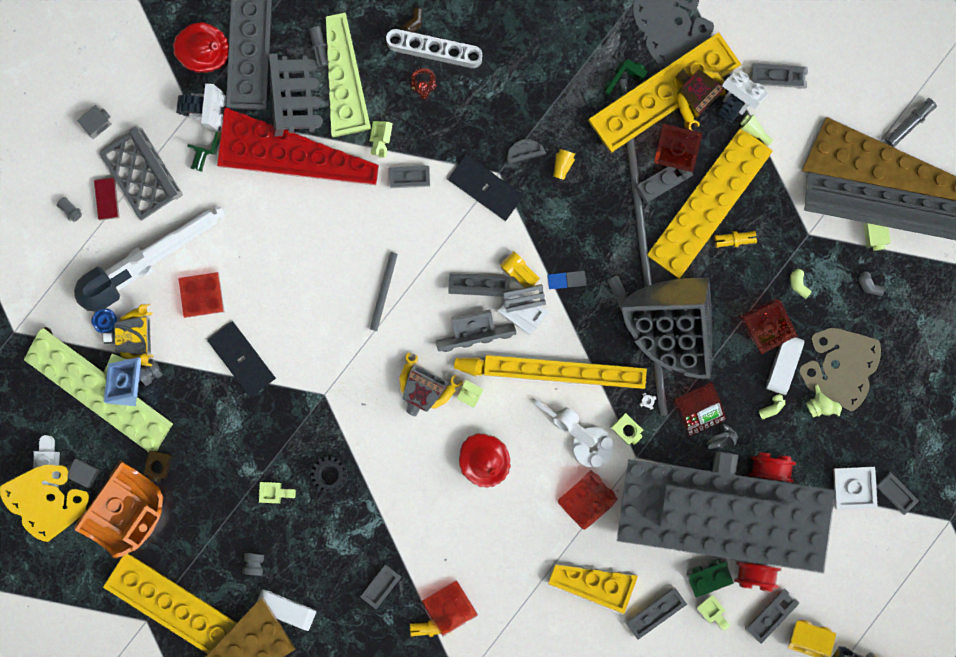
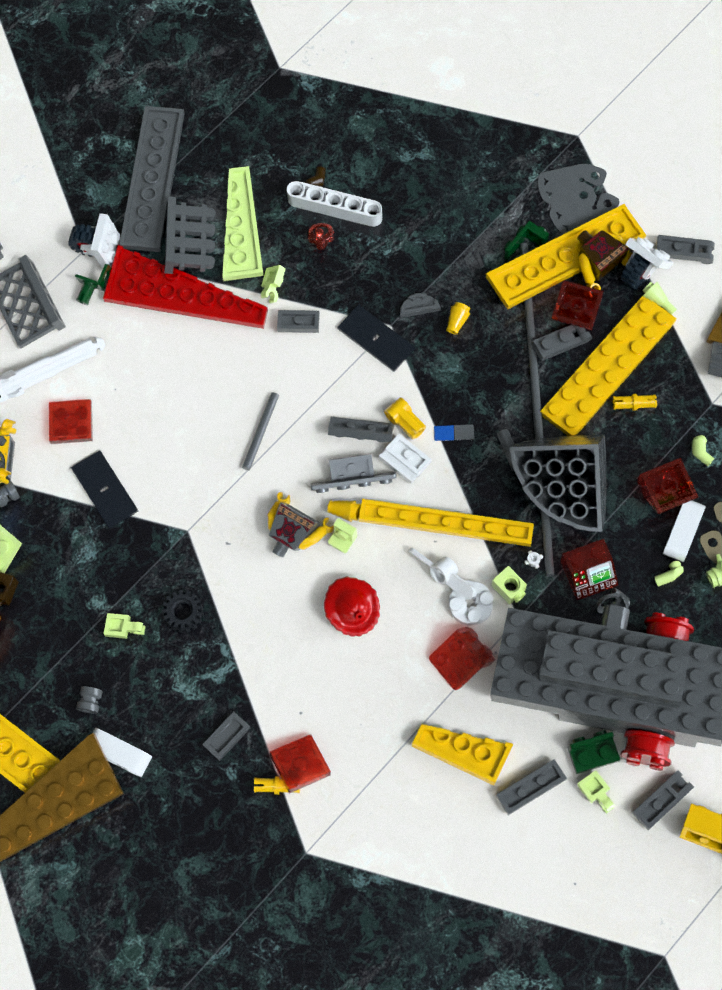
camera: 10 degrees right, 15 degrees down
(201, 47) = (102, 189): red piece -> none
(318, 46) = (219, 196): dark grey axle -> none
(526, 305) = (425, 440): tile -> none

